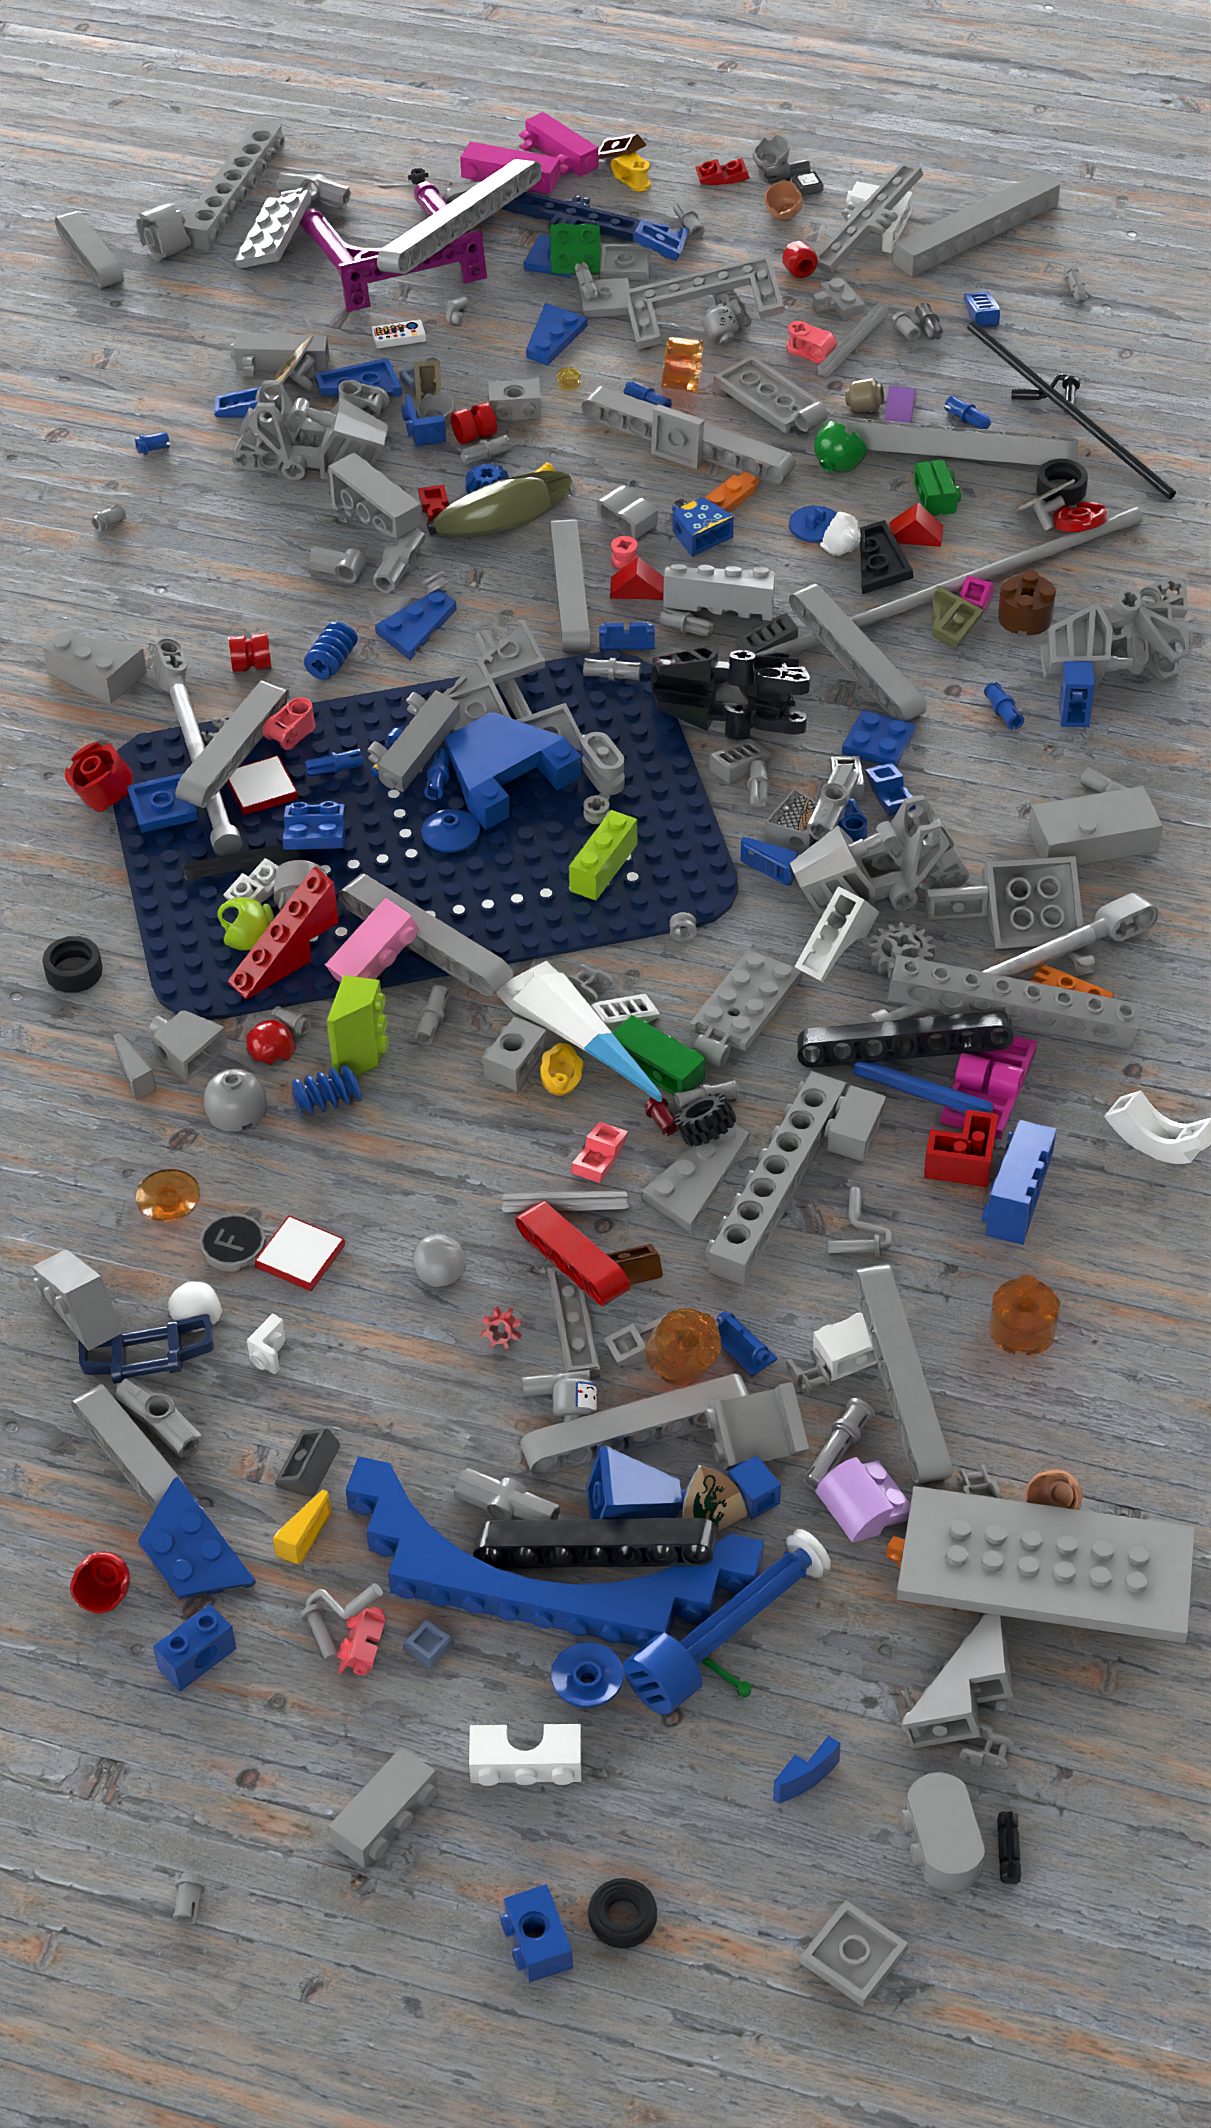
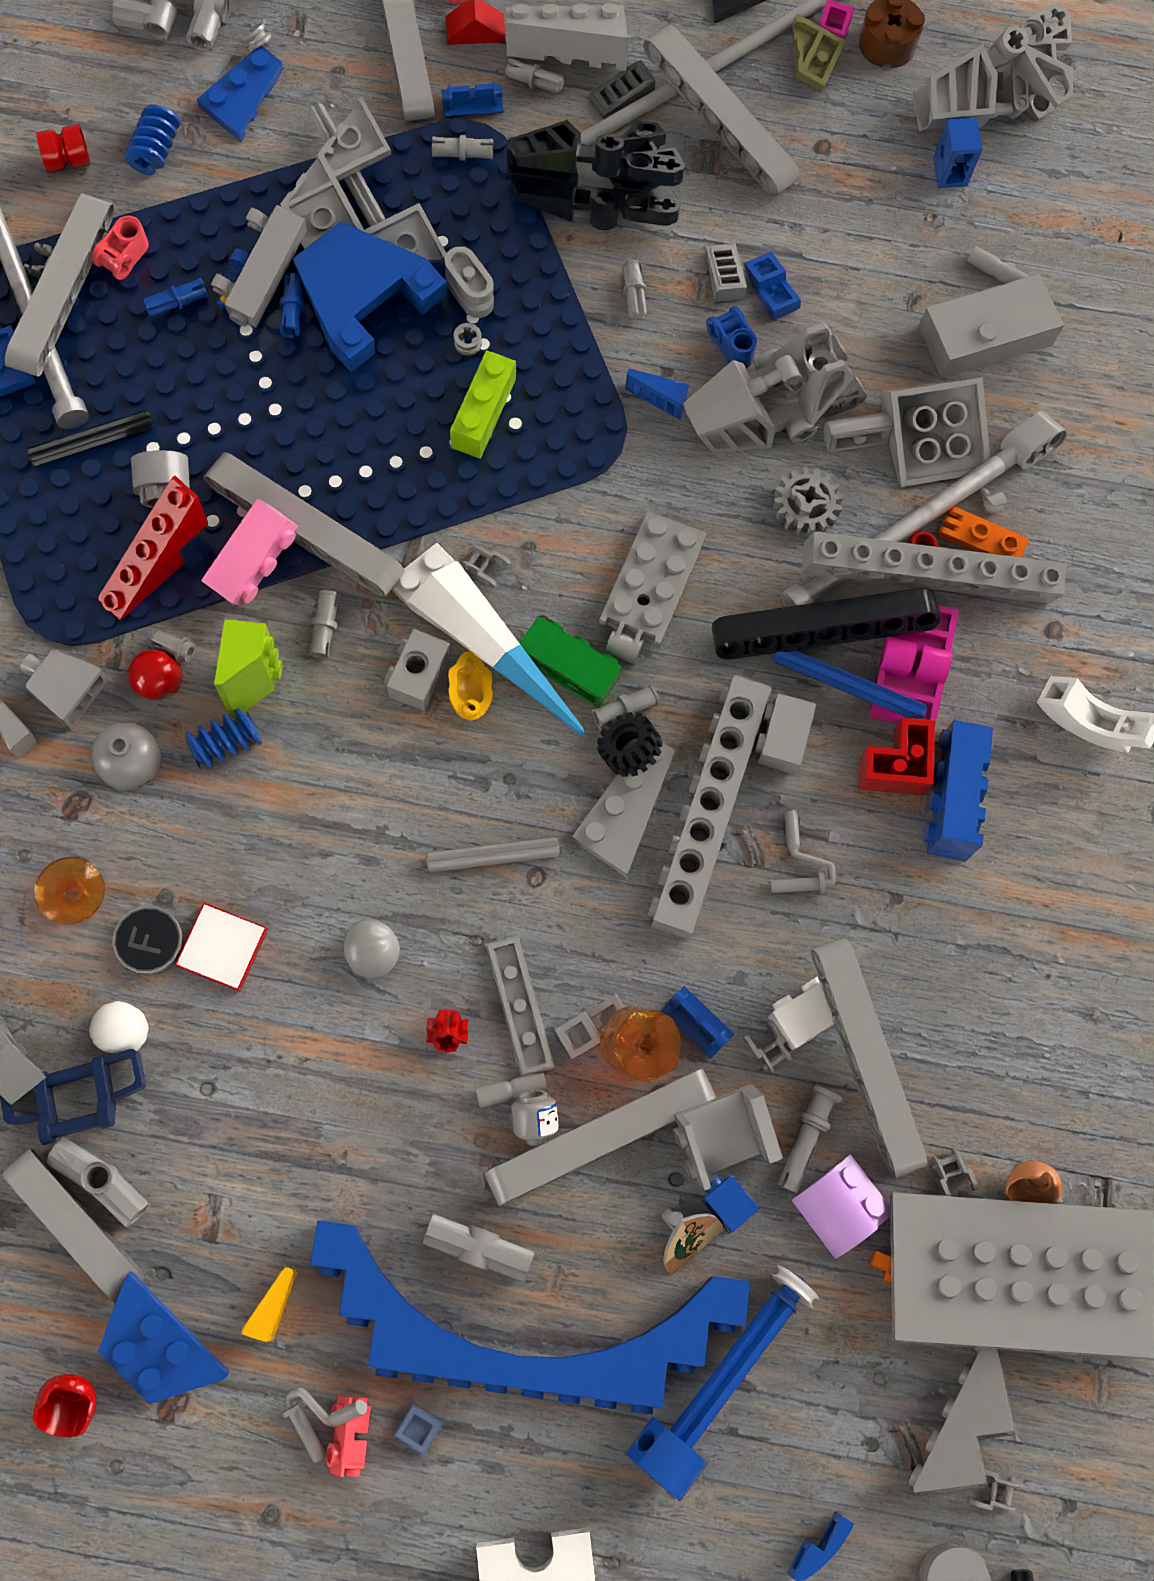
camera: 15 degrees left, 25 degrees up
(194, 1647) = (175, 1473): blue brick -> none
(249, 925) = (113, 530): lime piece -> none
(257, 885) = (111, 473): white slope -> none
(261, 785) = (100, 331): white tile -> none
(266, 1343) = (201, 1069): white bracket -> none
(308, 1462) = (264, 1214): dark grey slope -> none
(314, 826) = (165, 391): blue brick -> none
(450, 830) = (317, 387): blue dish -> none
(572, 1253) = (512, 934): red beam -> none
(583, 1662) = (592, 1478): blue dish -> none
(596, 1543) = (578, 1304): black beam -> none
(600, 1152) = (521, 787): coral slope -> none
(610, 1009) = (525, 618): white slope -> none
(631, 1489) = (604, 1234): slope -> none
(639, 1263) = (566, 930): reddish brown slope -> none
(661, 1115) = (586, 743): dark red pin -> none
(683, 934) = (576, 487): light grey bush -> none
(725, 762) = (601, 275): light grey slope -> none
(743, 1688) = (744, 1444): green hinge -> none
(789, 823) = (685, 342): torso -> none
(832, 801) = (718, 334): light grey piece -> none
(840, 925) = (740, 494): white arch -> none
(878, 738) = (753, 218): blue plate -> none
(1004, 705) = (879, 167): blue pin -> none
(1024, 1315) = (999, 958): clear orange brick -> none

